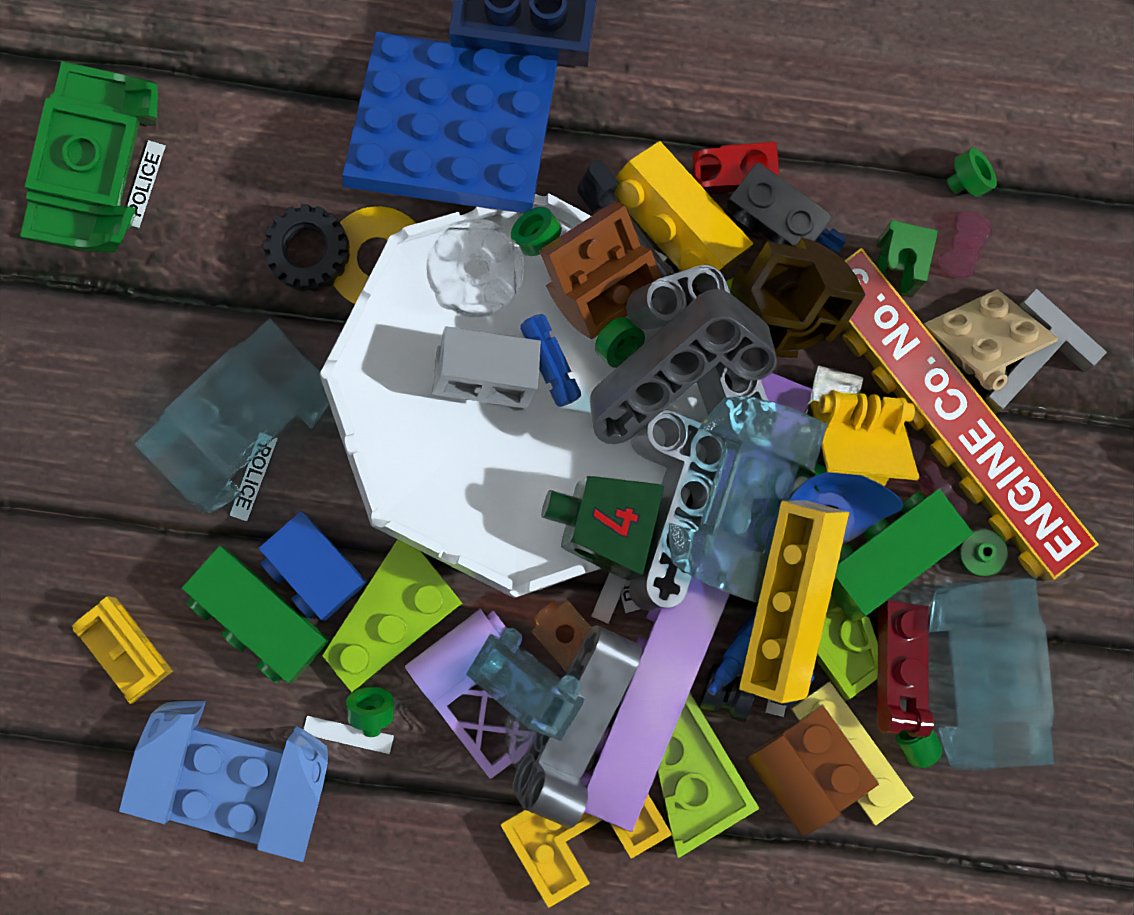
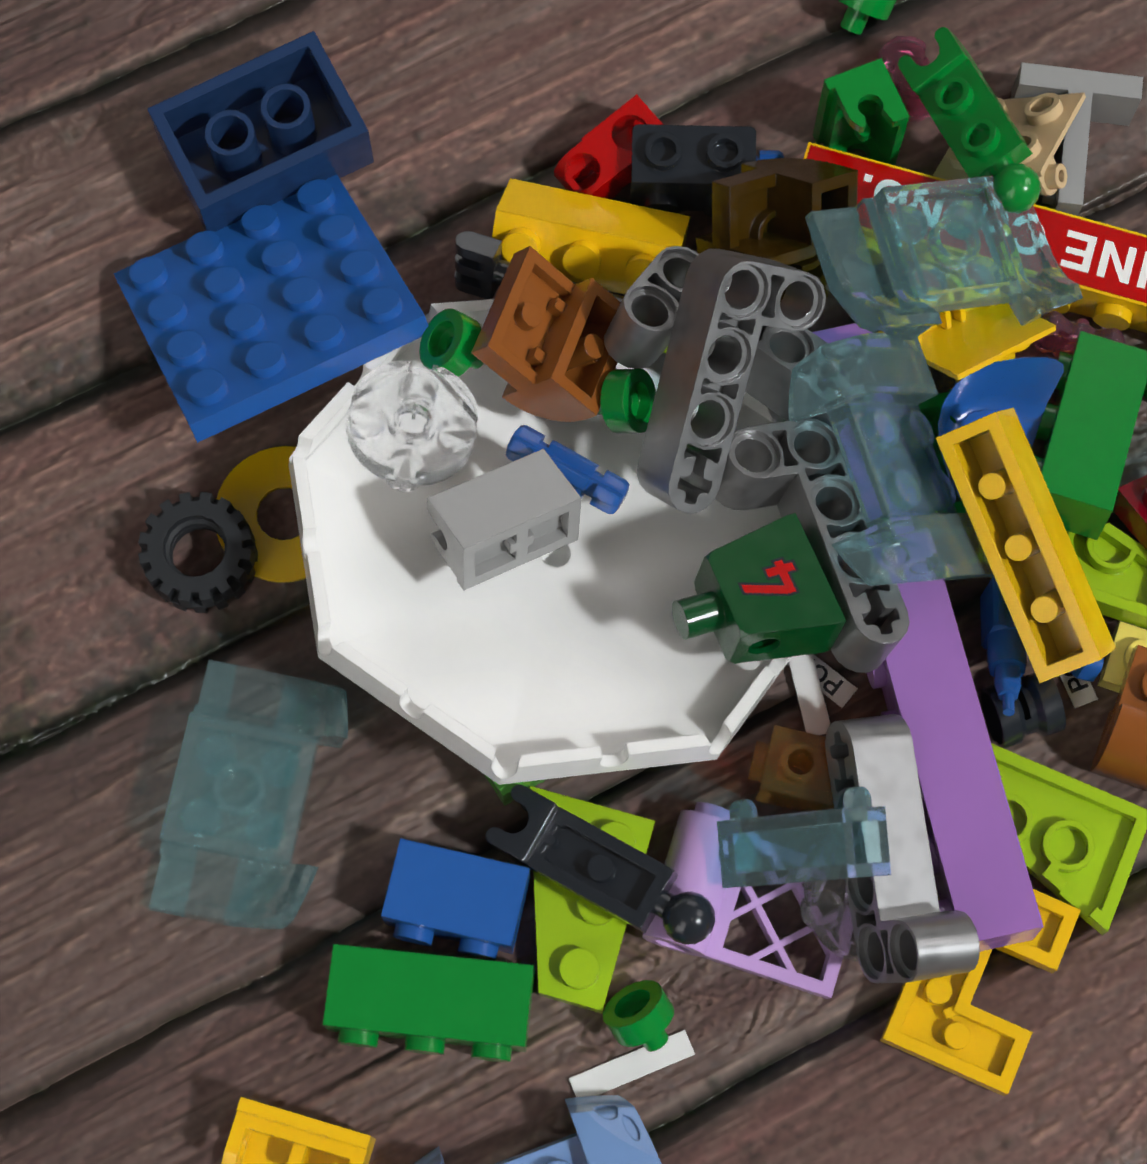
camera: 35 degrees left, 10 degrees down
(251, 482) = (316, 854): white sticker -> none
(404, 613) = (602, 869): none -> black plate
(878, 384) = (935, 252): none -> clear light blue piece
(970, 309) = (974, 121): none -> green plate

